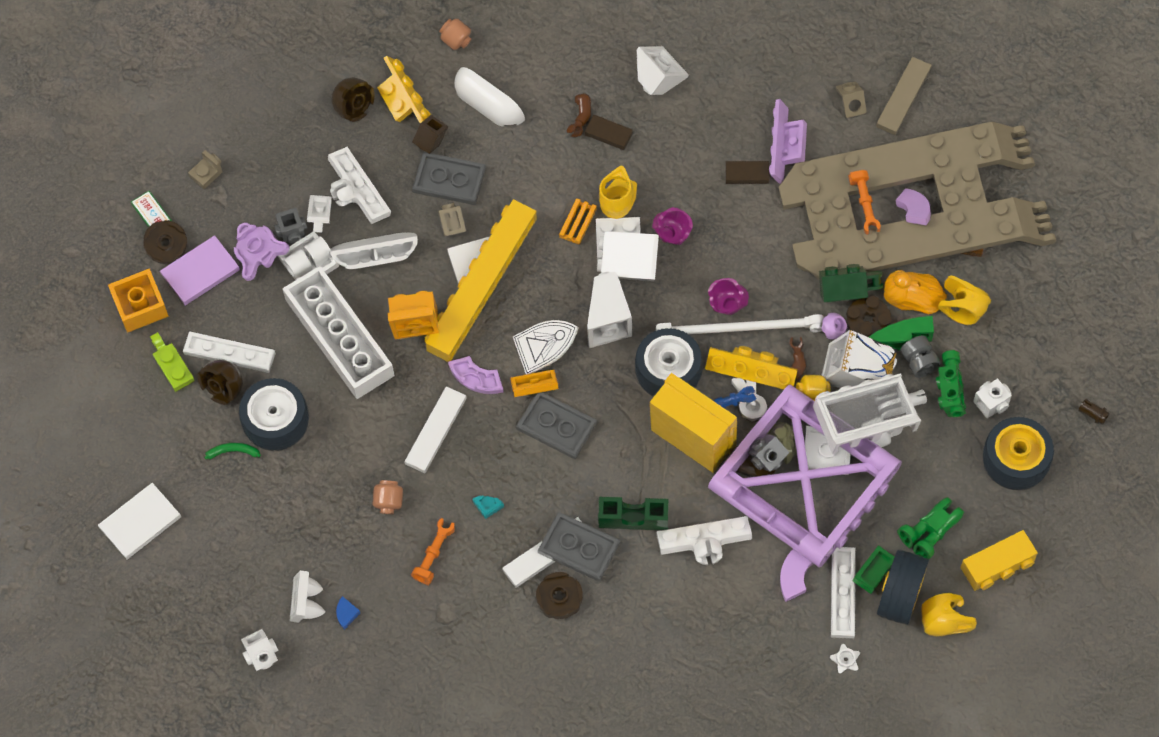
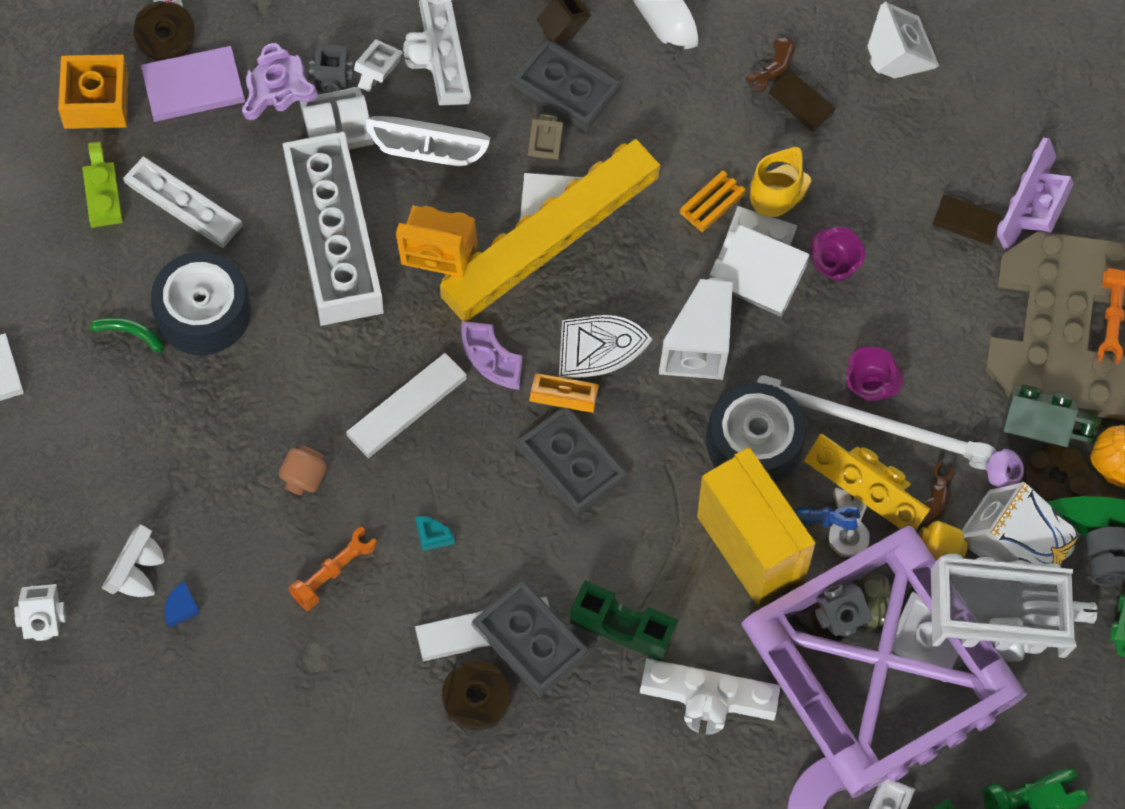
camera: 15 degrees right, 0 degrees up
(221, 380) = (154, 233): dark brown cylinder -> none

